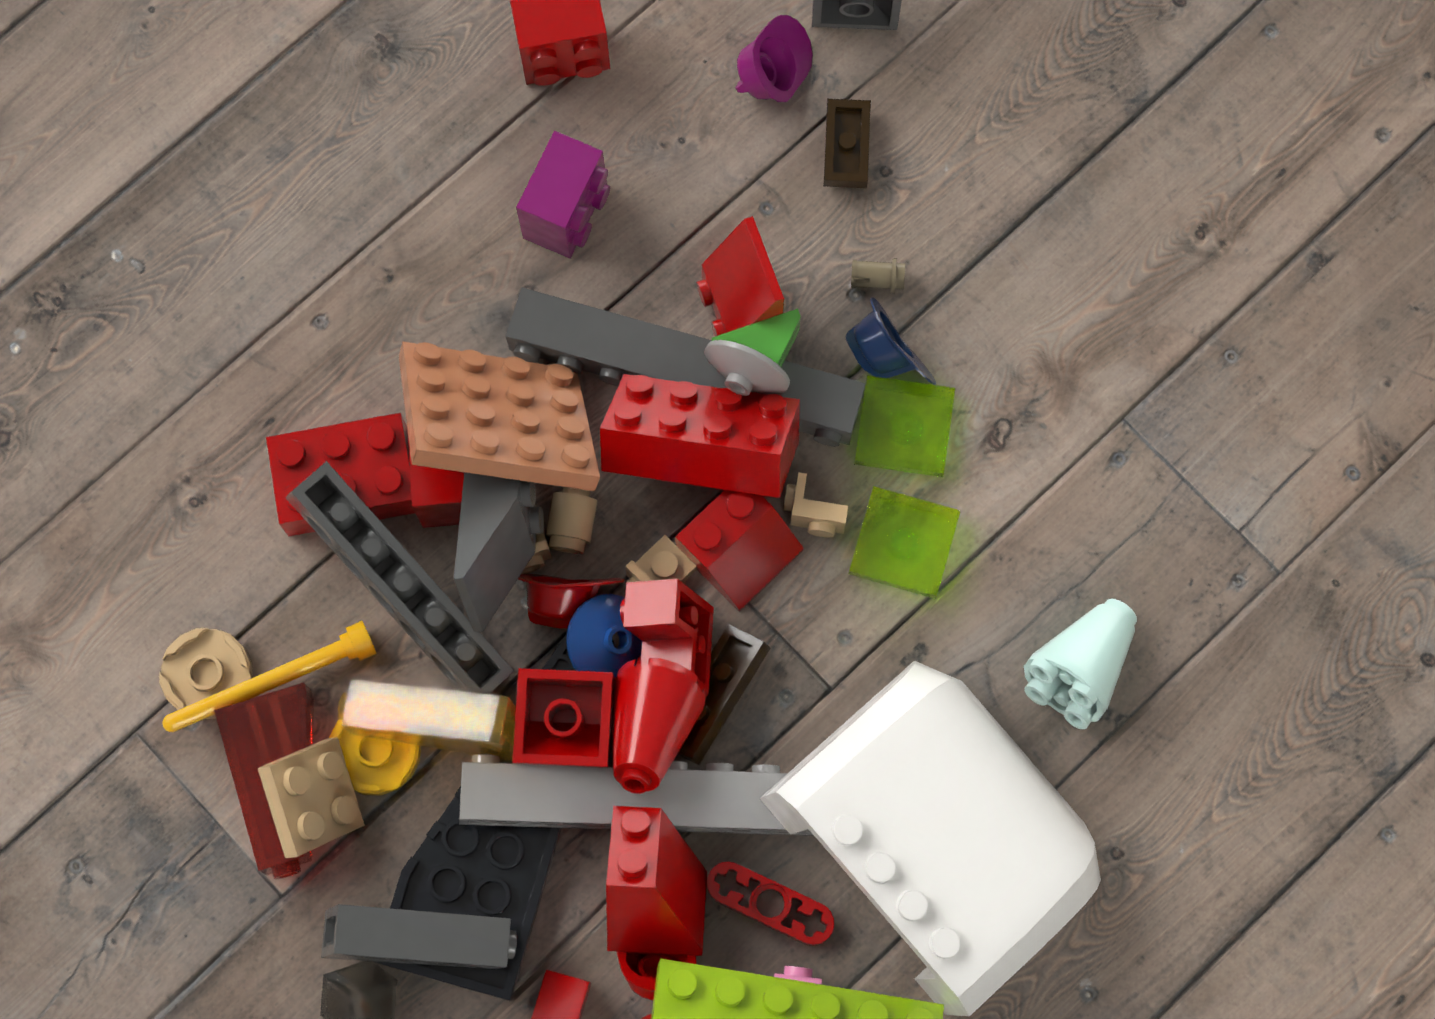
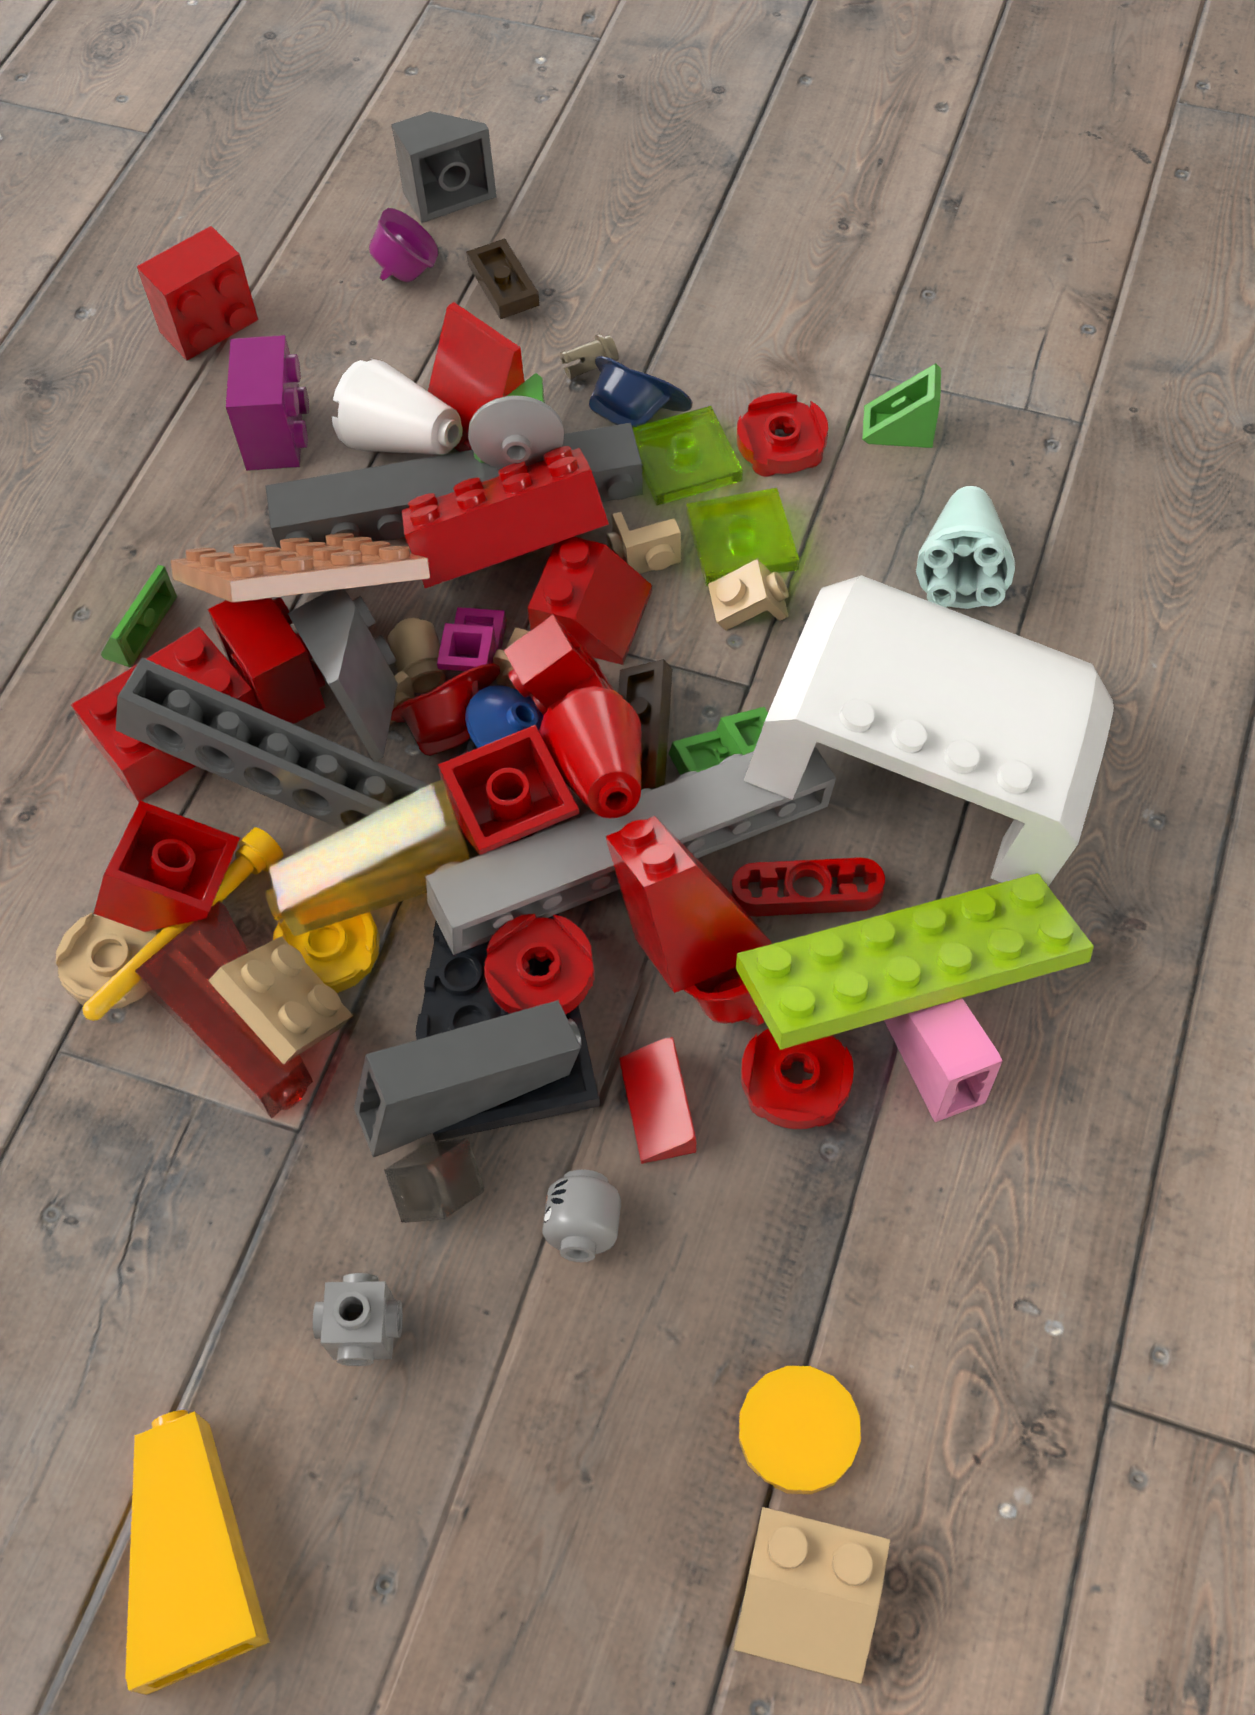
camera: 25 degrees left, 15 degrees down
(276, 632) = (164, 870): none -> red slope
(362, 359) = (141, 619): none -> bright green slope
(495, 856) = (543, 938): none -> red plate
(621, 535) = (471, 639): none -> dark pink slope
(665, 269) = (392, 413): none -> white cone
(772, 742) = (733, 736): none -> bright green slope
(876, 606) = (747, 594): none -> tan bracket
(1022, 438) = (777, 454): none -> red plate
(1117, 488) = (905, 413): none -> bright green slope

